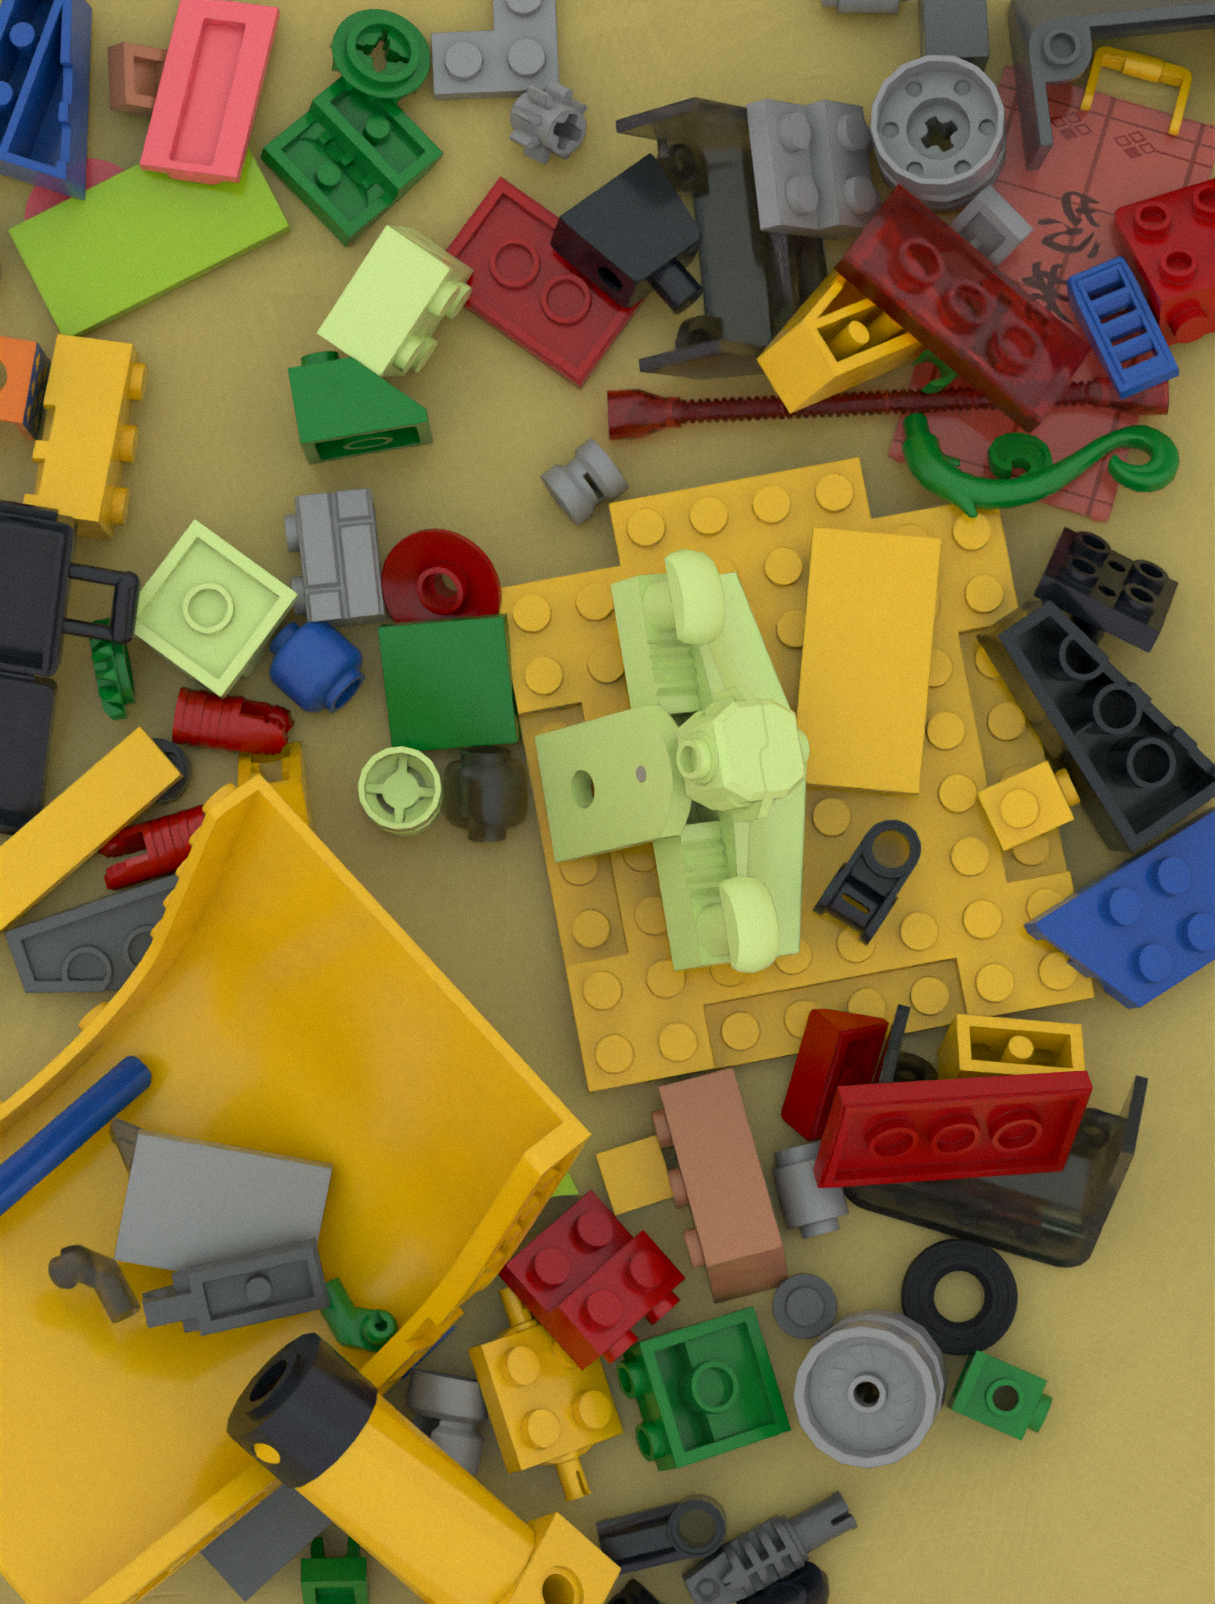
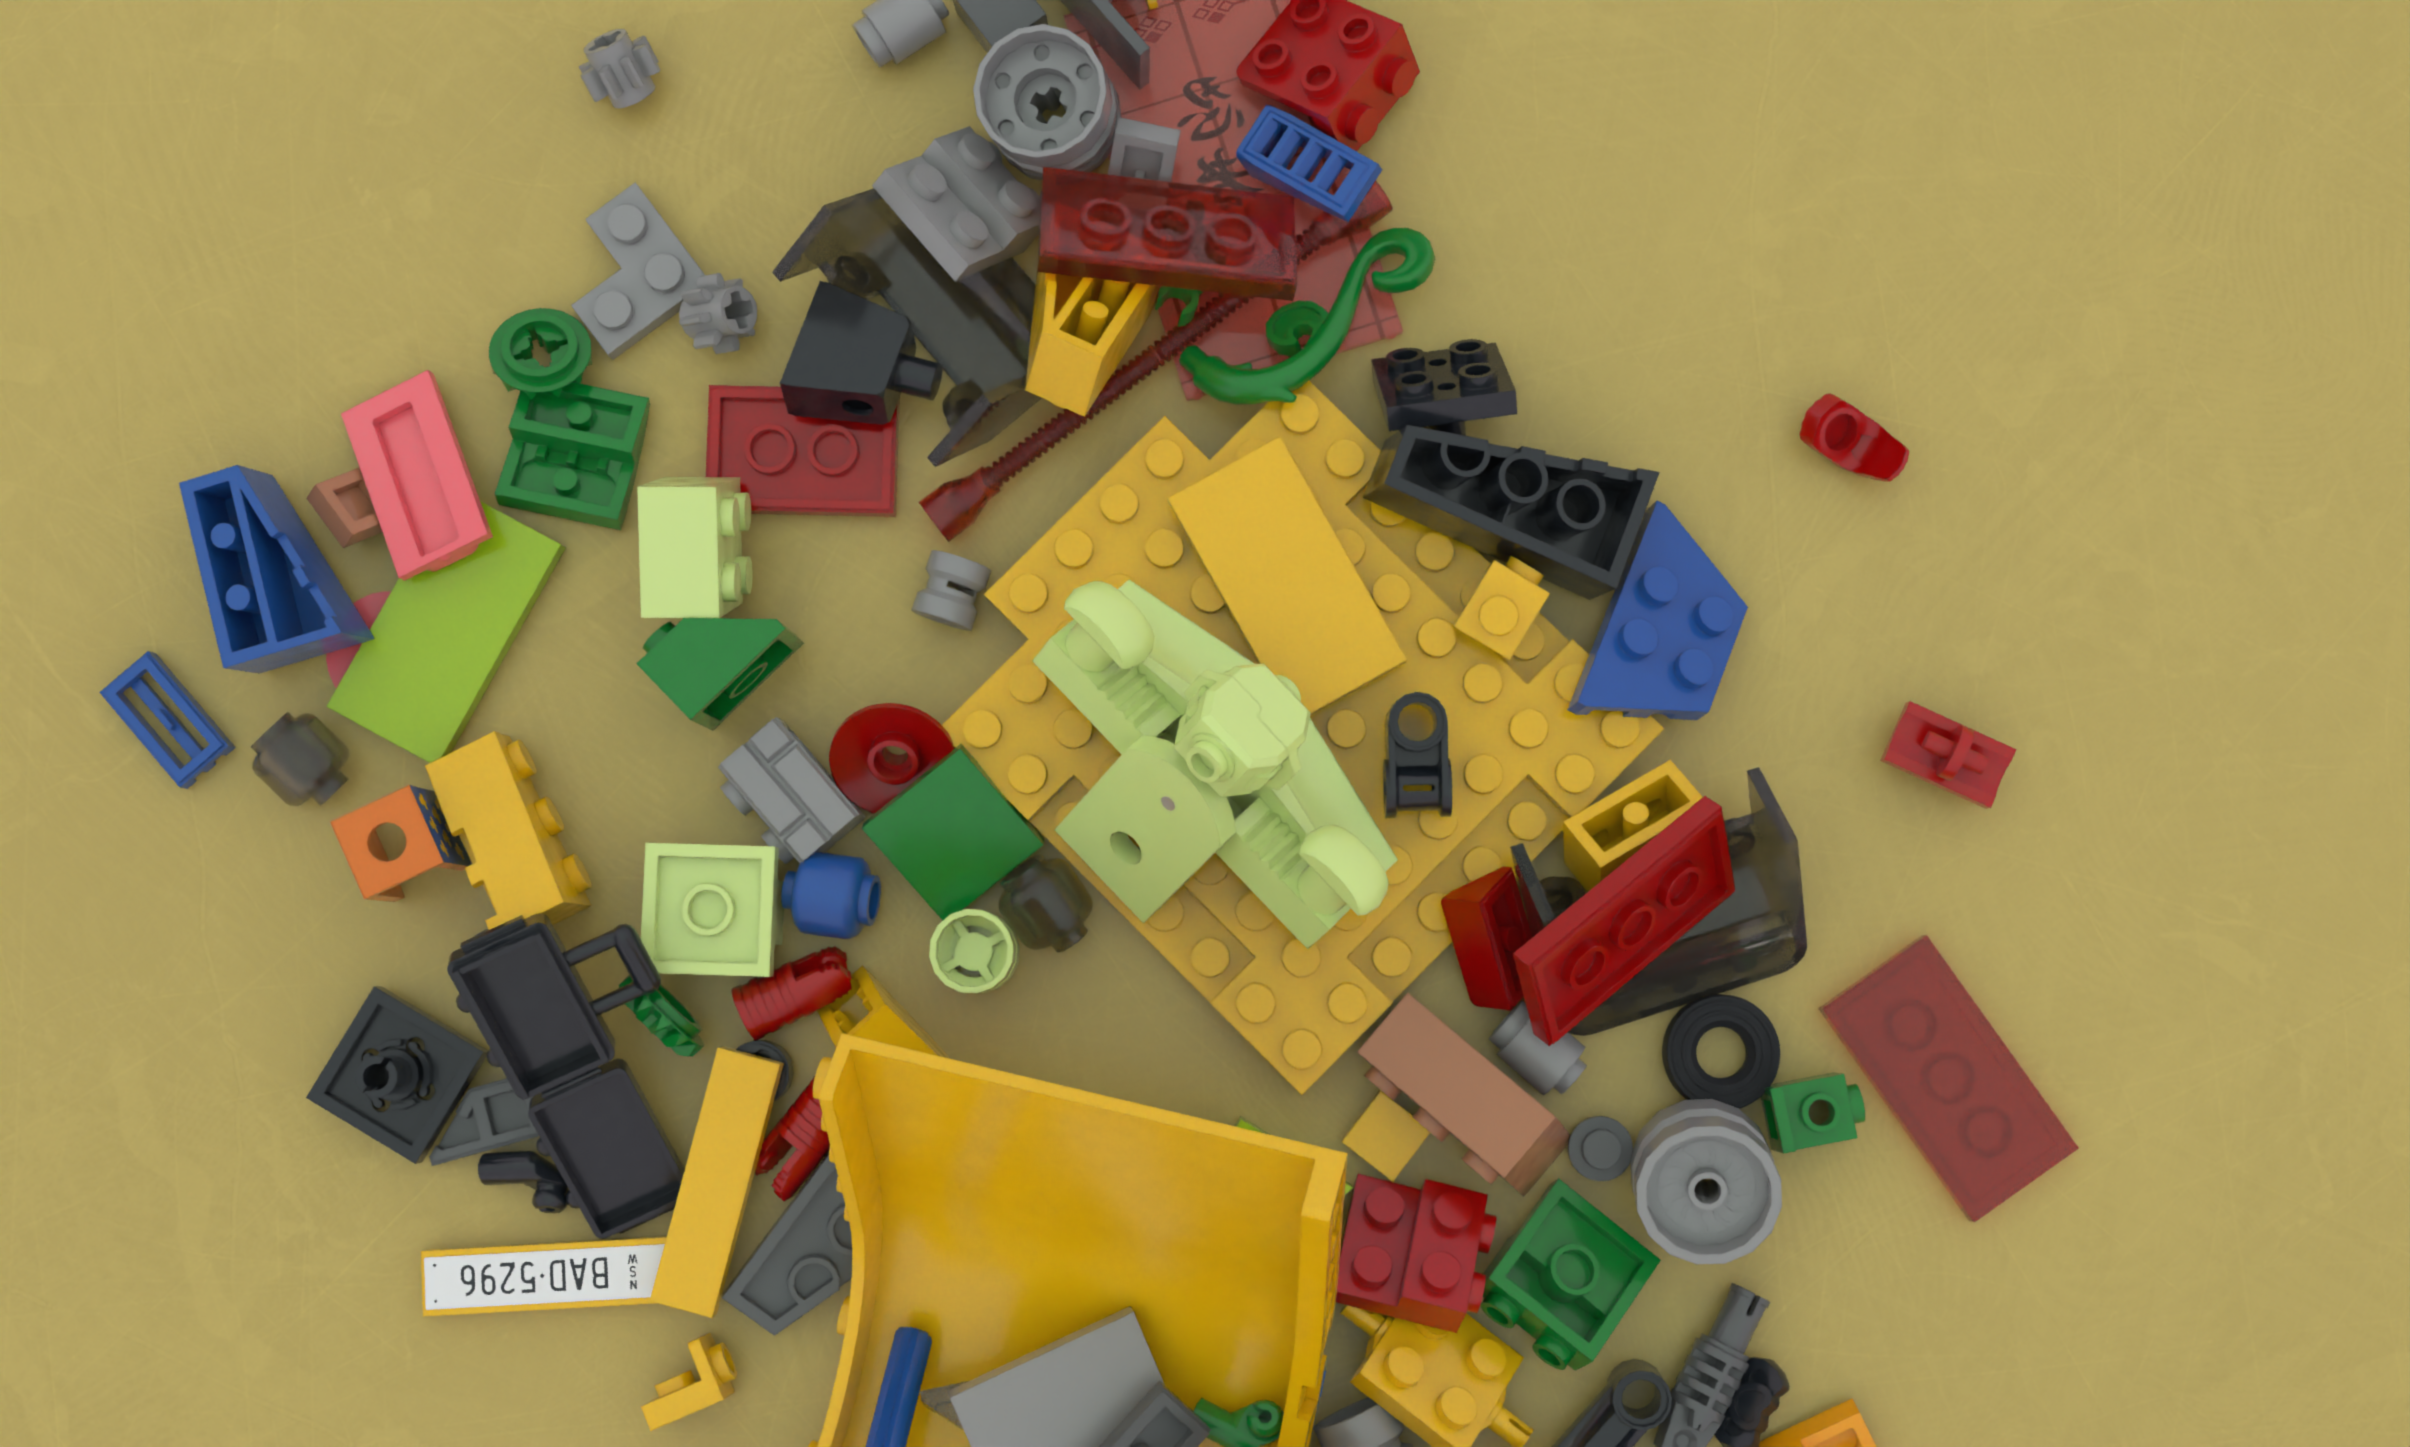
camera: 30 degrees left, 0 degrees up
(1133, 1447) = (1948, 1078): none -> clear red tile

